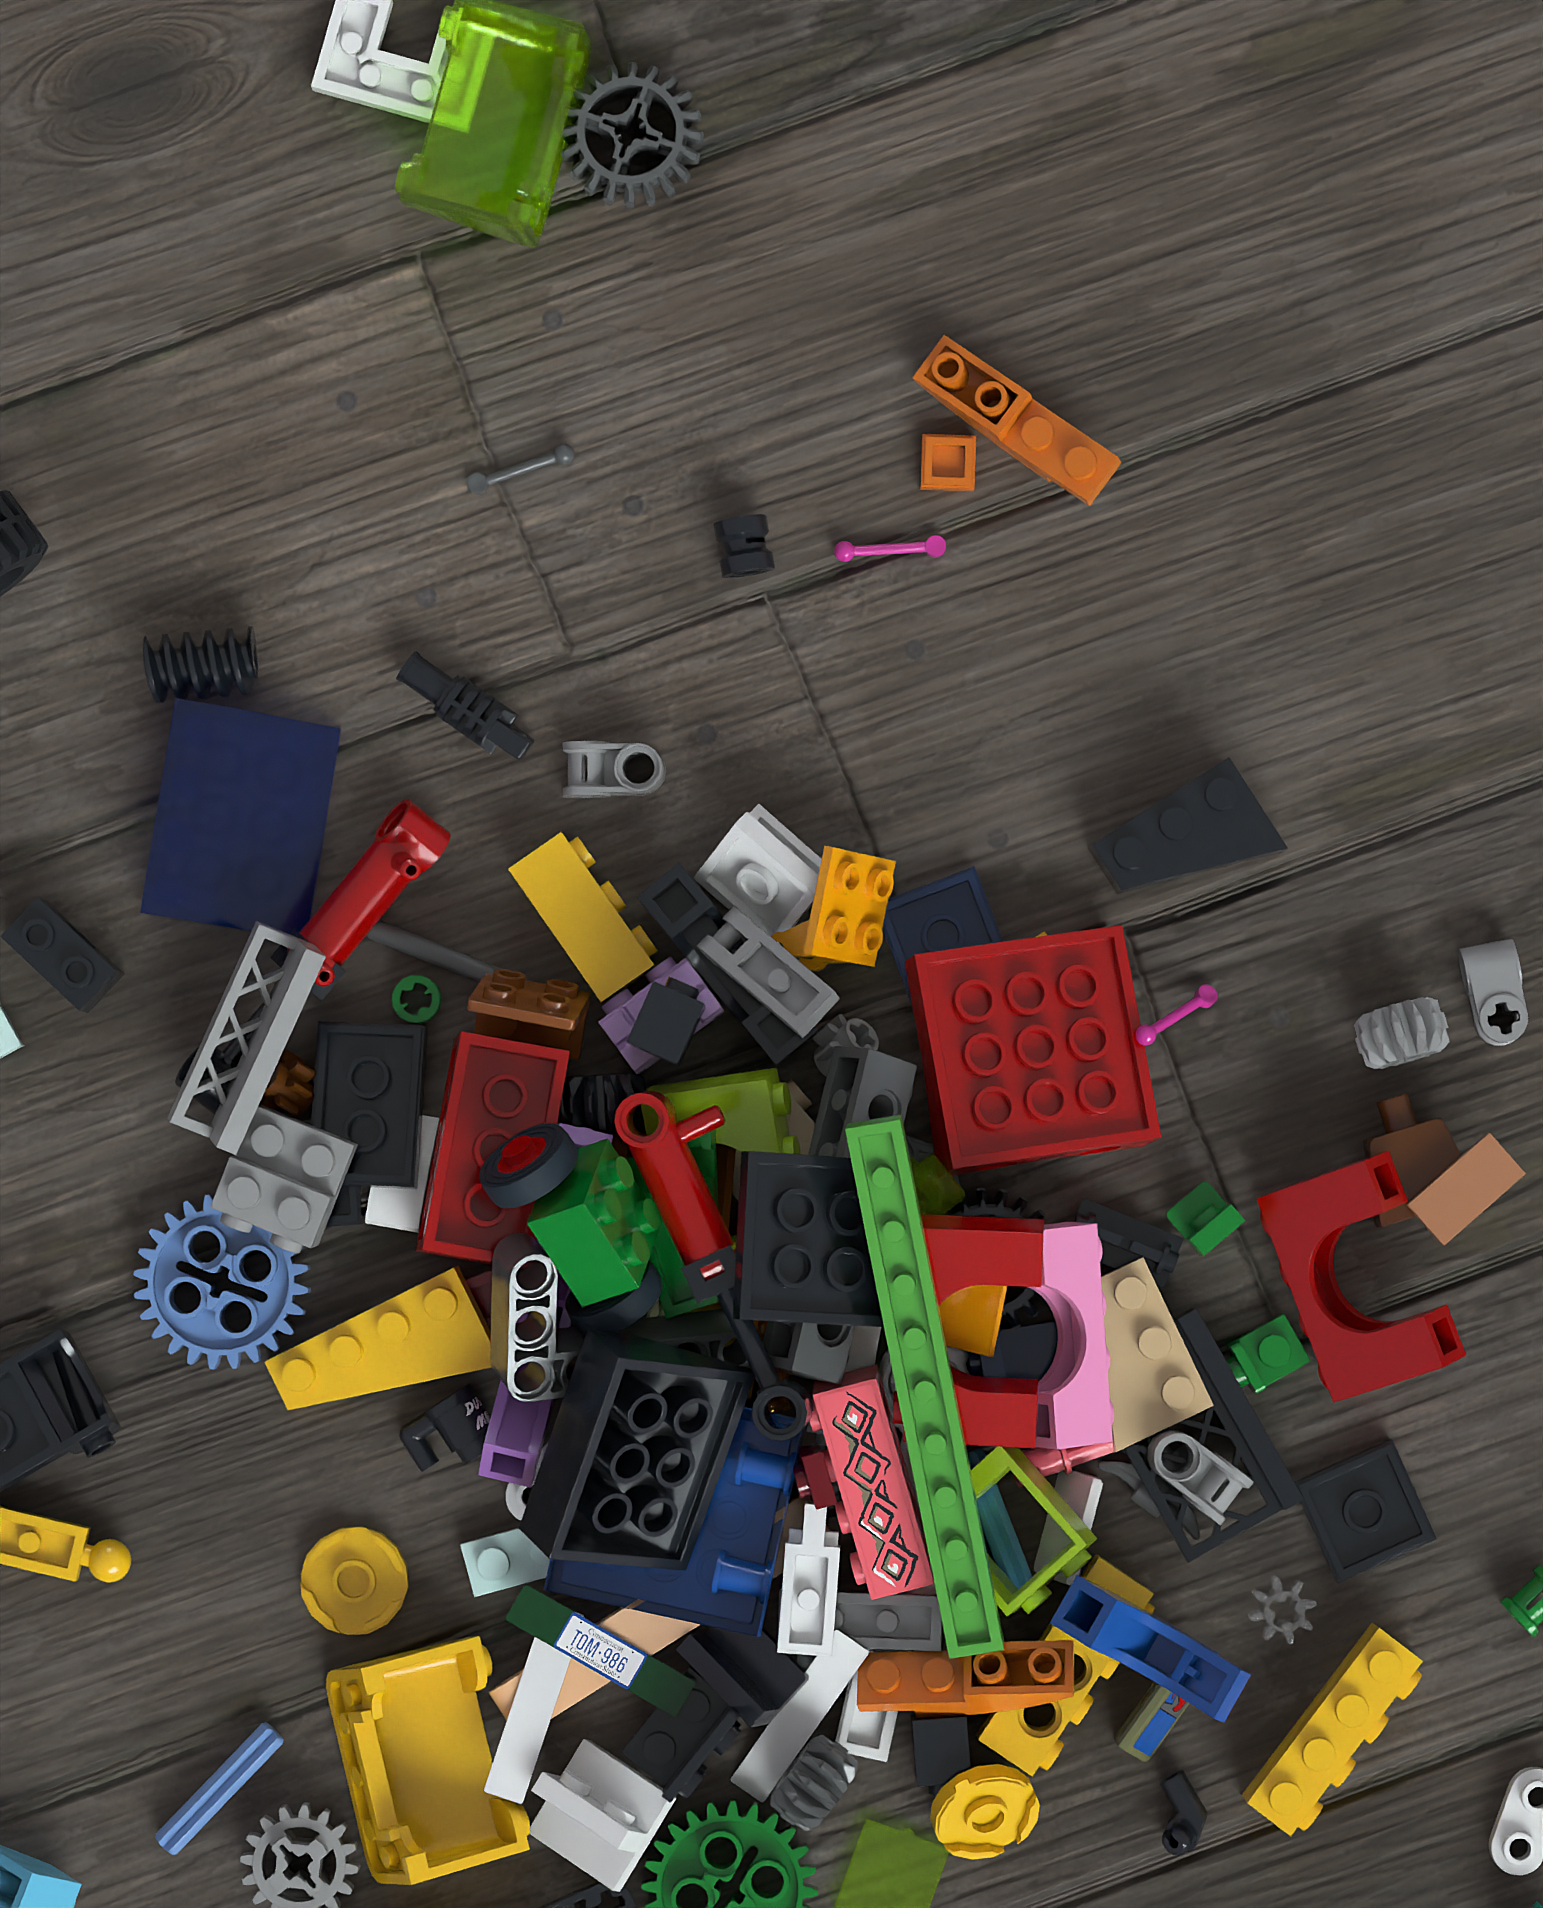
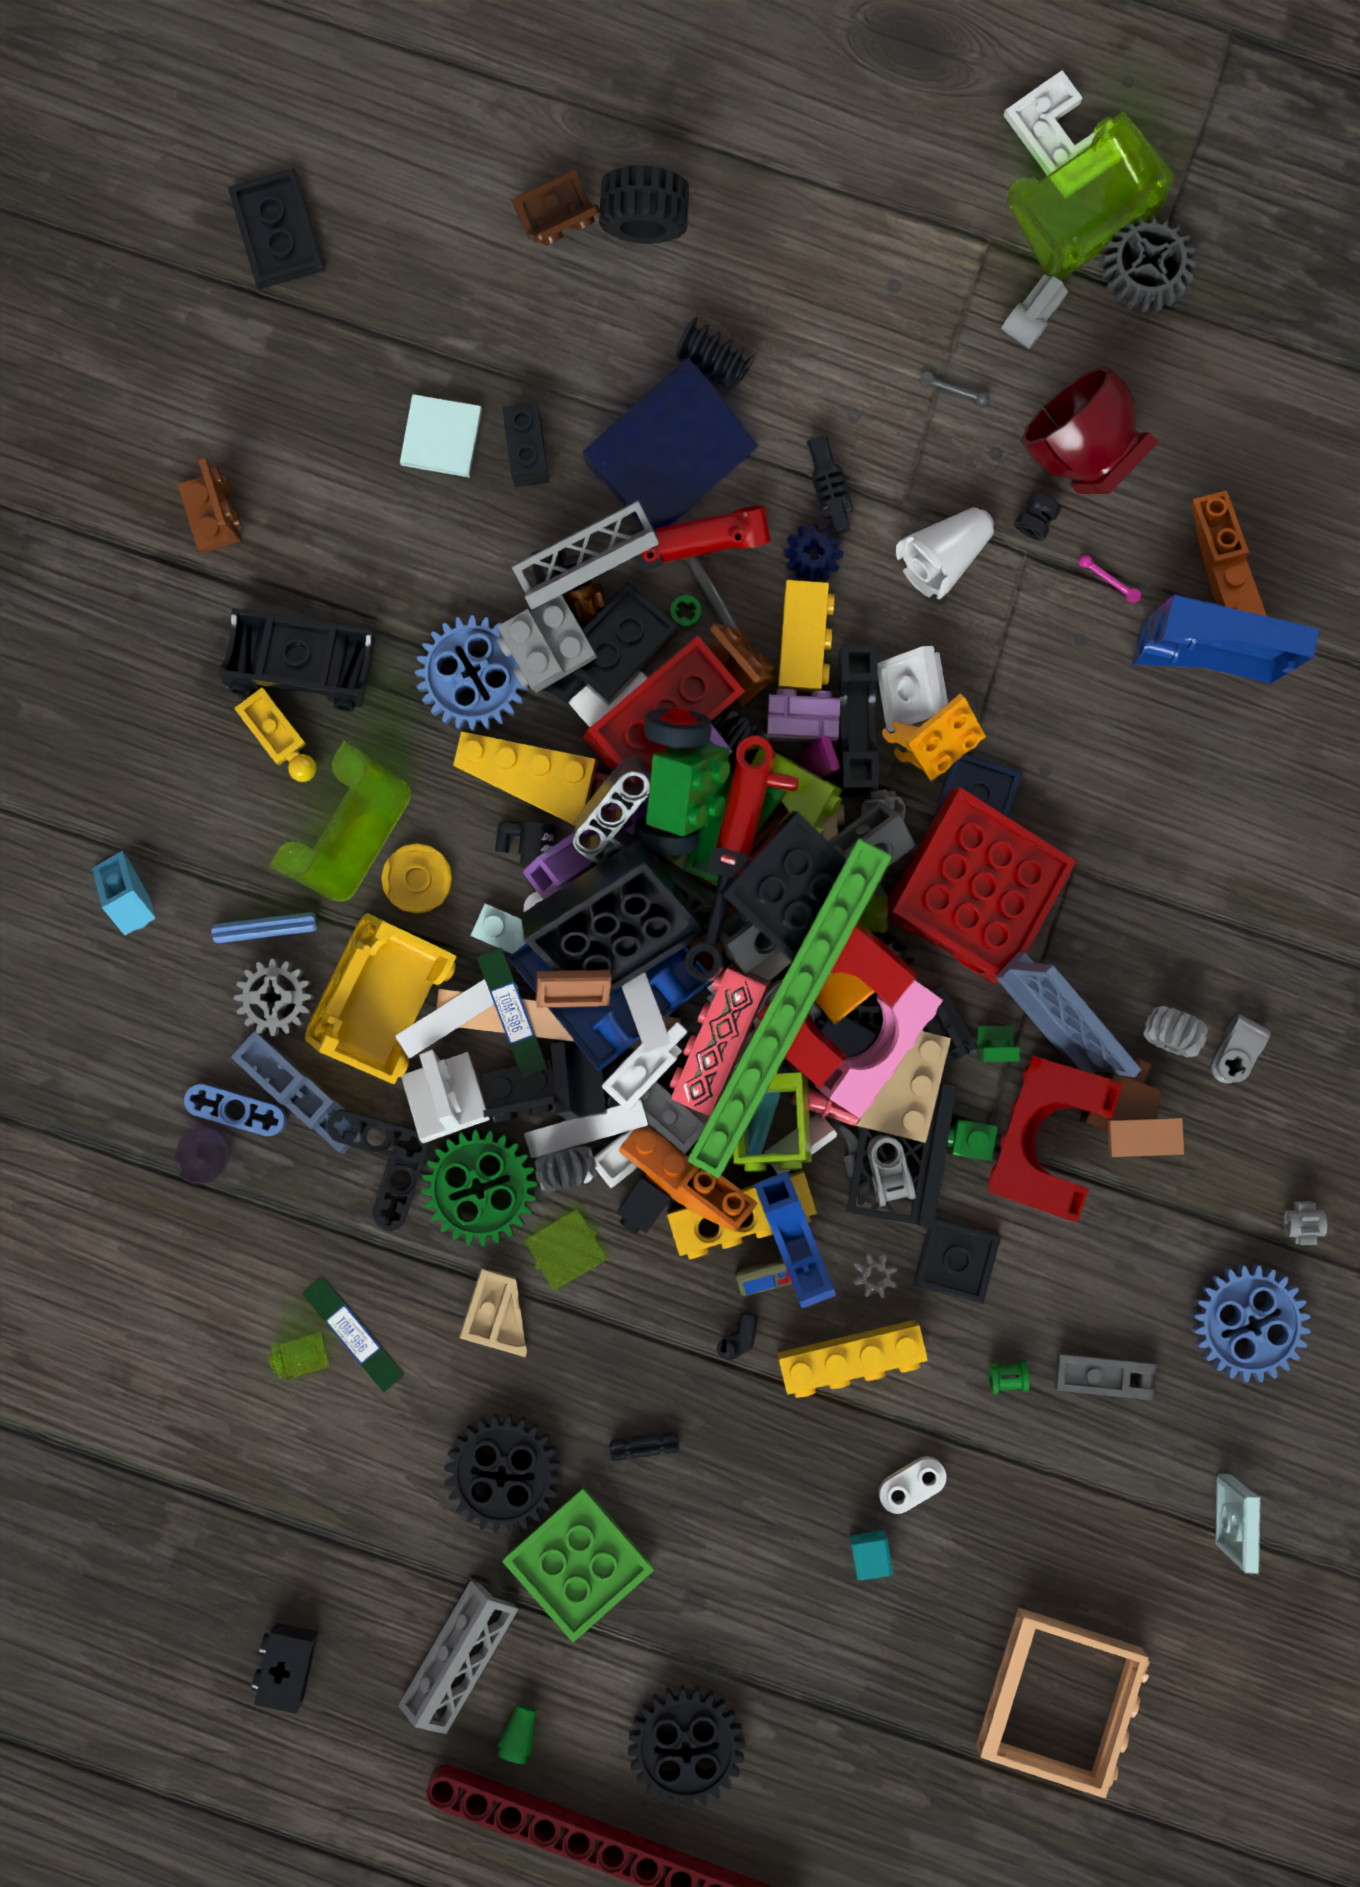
camera: 40 degrees right, 0 degrees up
(239, 1588) = (354, 831): none -> clear neon green windscreen
(517, 790) = (823, 546): none -> clear blue gear
(543, 315) = (1031, 317): none -> light grey piece
(607, 769) = (876, 573): light grey piece -> none
(651, 1565) = (573, 988): none -> nougat tile
(667, 1020) = (806, 717): black brick -> none
(668, 677) = (944, 550): none -> white cone
(721, 1051) = (820, 758): none -> magenta slope
(745, 404) = (1094, 436): none -> dark red plate
(761, 1524) = (646, 1013): none -> white sticker
(769, 973) = (878, 737): light grey plate -> none
(813, 1477) = (692, 1011): dark red plate -> none
(948, 462) = (1174, 558): orange tile -> none
(984, 1811) = (640, 1254): yellow tile -> none
(1047, 551) = (1223, 639): none -> blue piece
(1188, 833) = (1150, 842): black wedge -> none
(1203, 997) = (1086, 933): dark pink hinge -> none
(1254, 1129) = (1064, 1017): none -> sand blue fence

